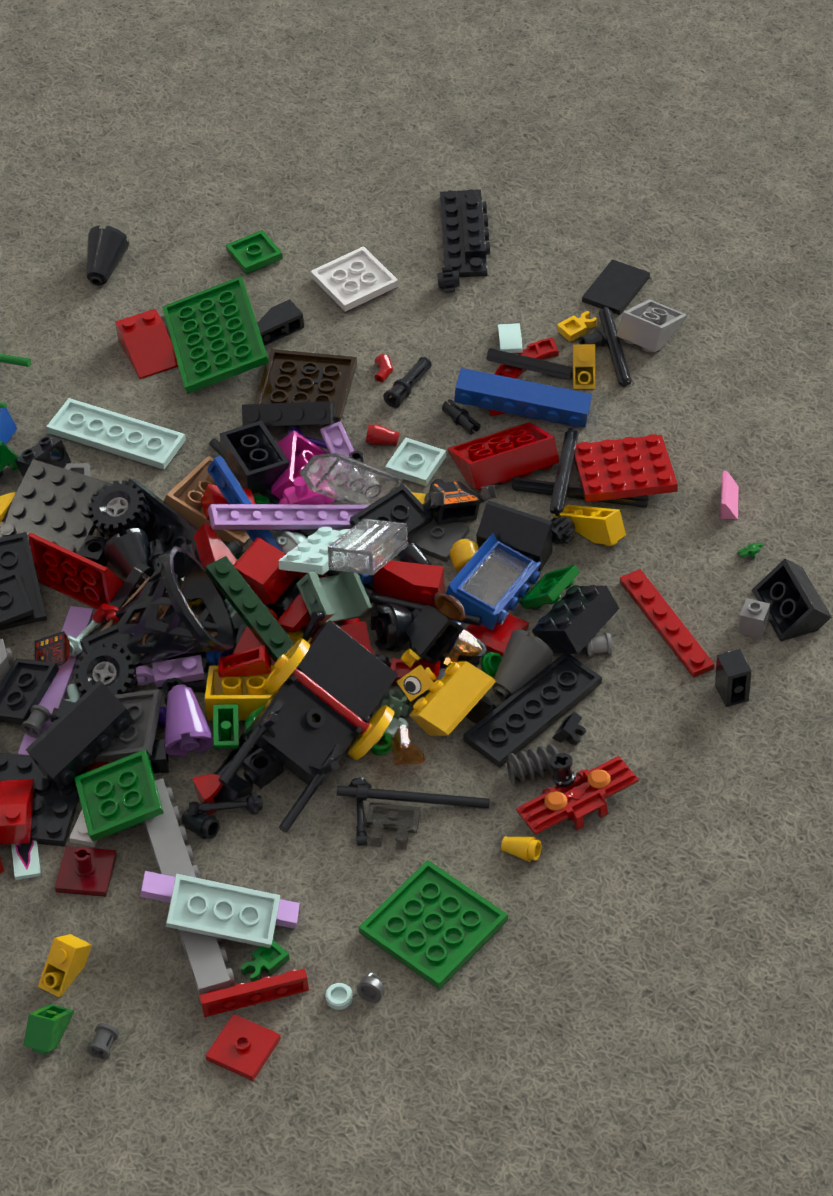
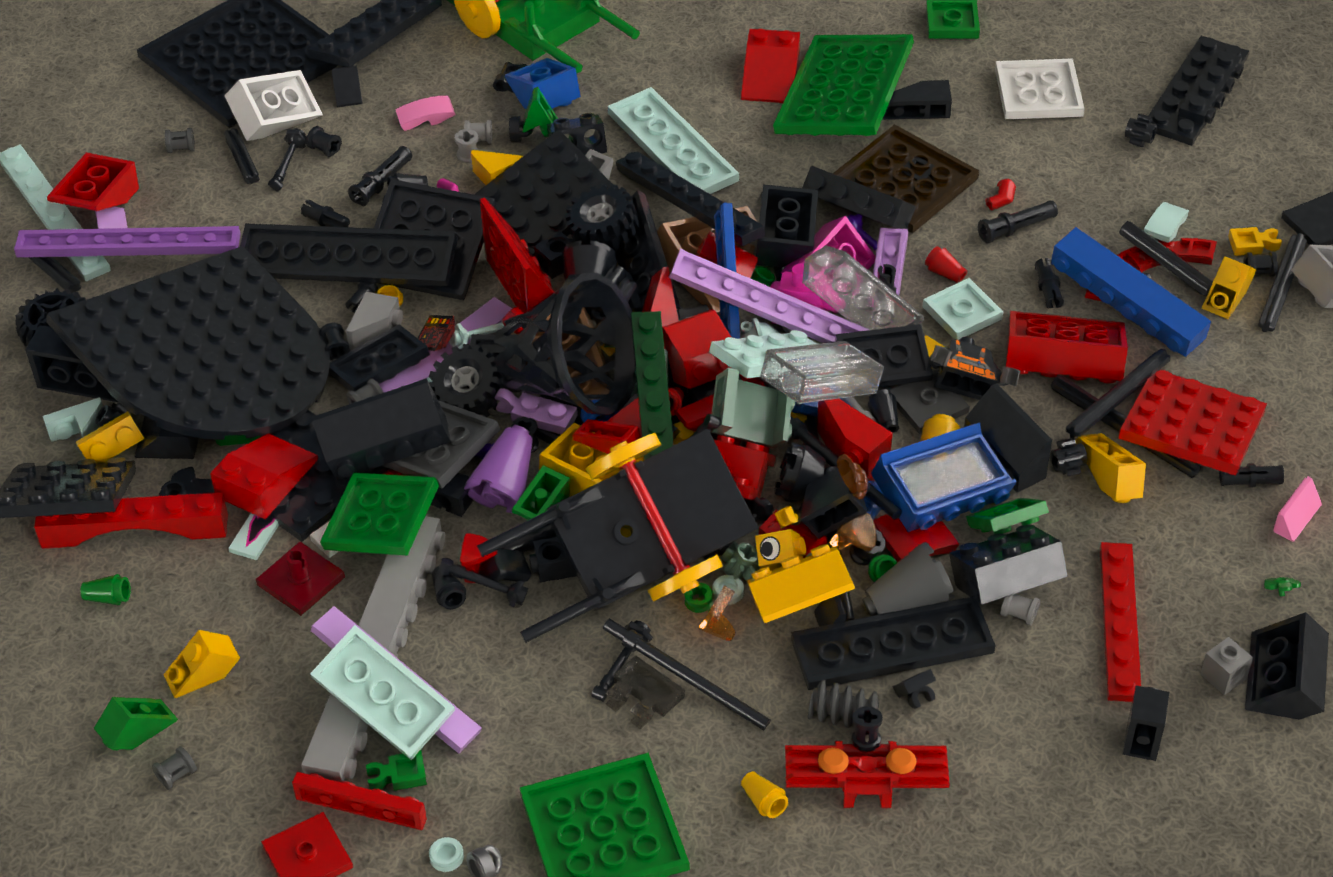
camera: 30 degrees right, 0 degrees up
(160, 466) = (686, 195): none -> black plate
(685, 487) = (1254, 475): none -> black pin

